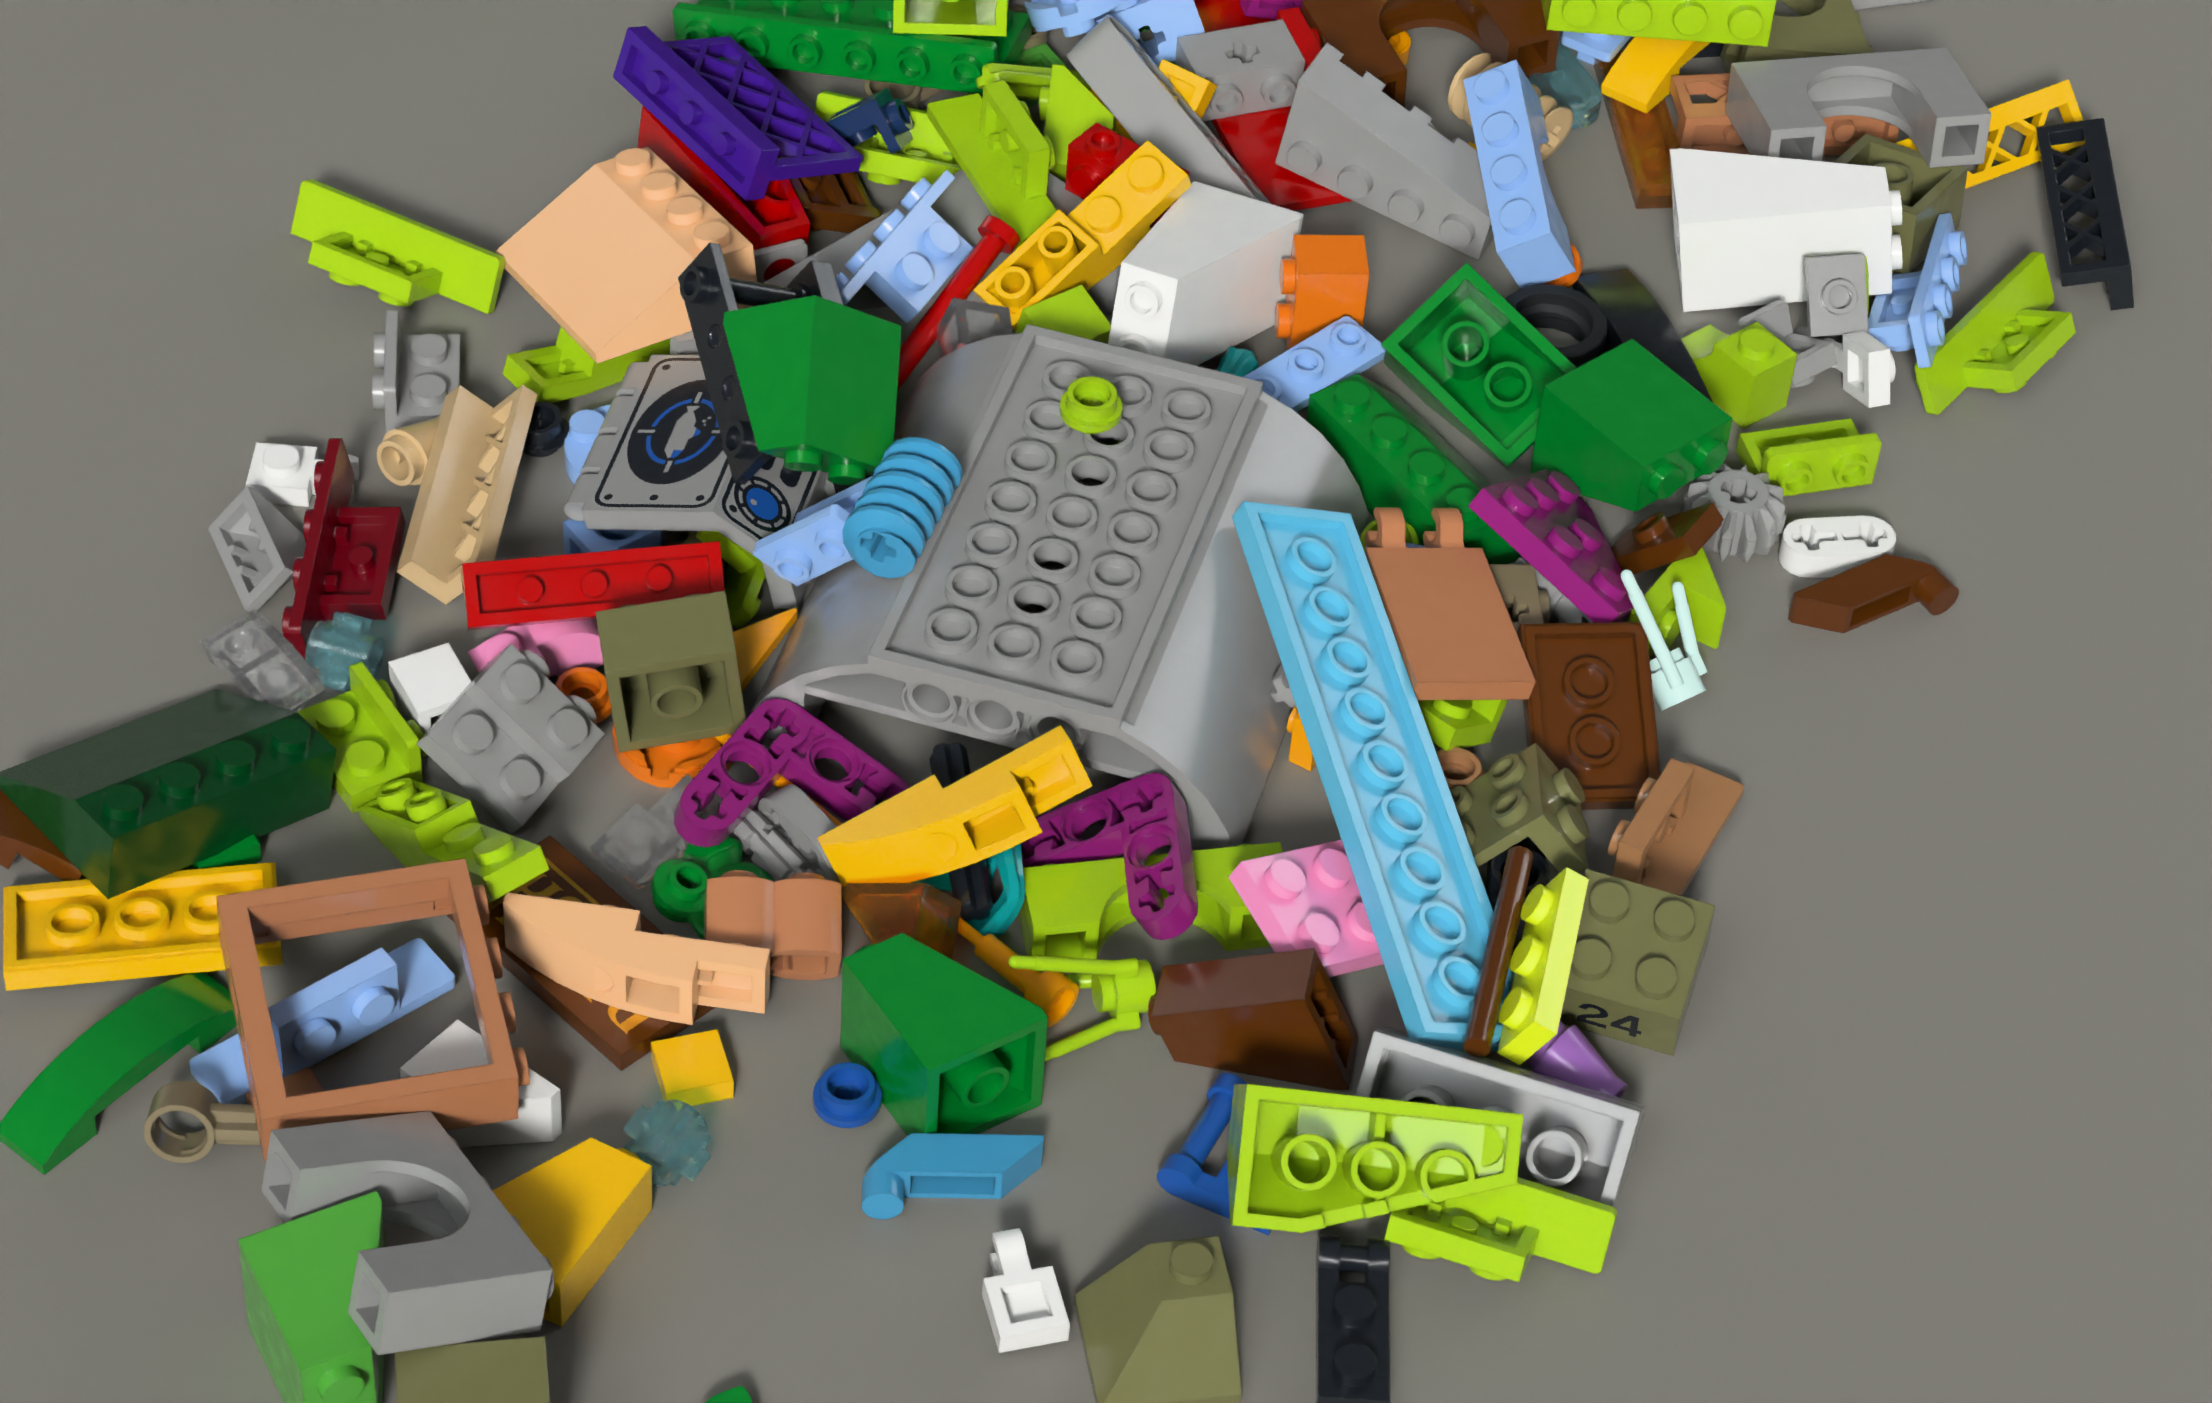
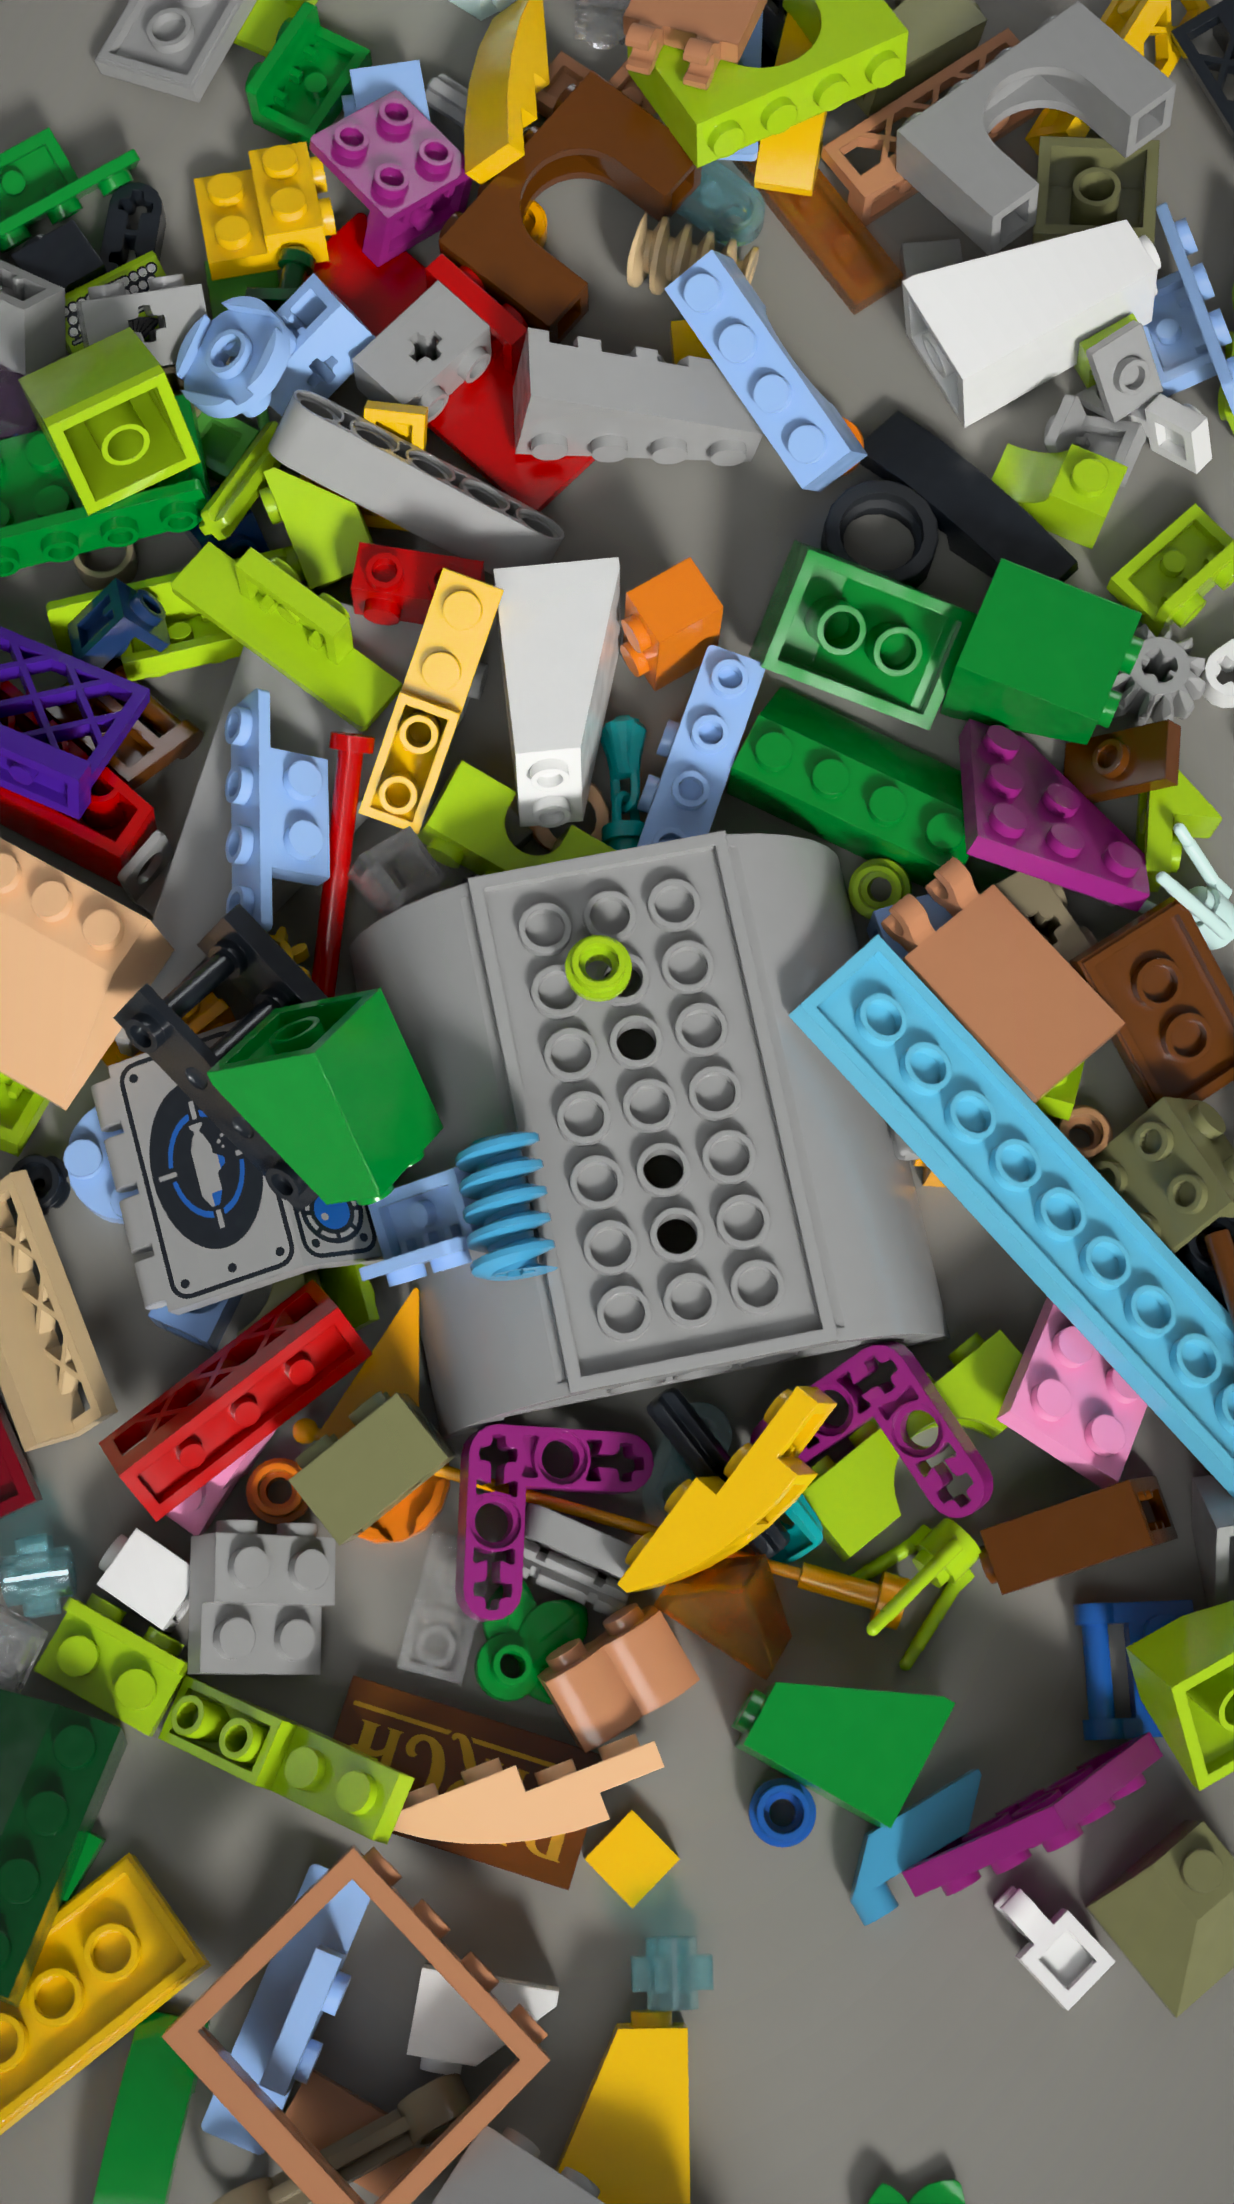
camera: 30 degrees left, 30 degrees up
(1070, 1164) = (1042, 1817): none -> magenta plate

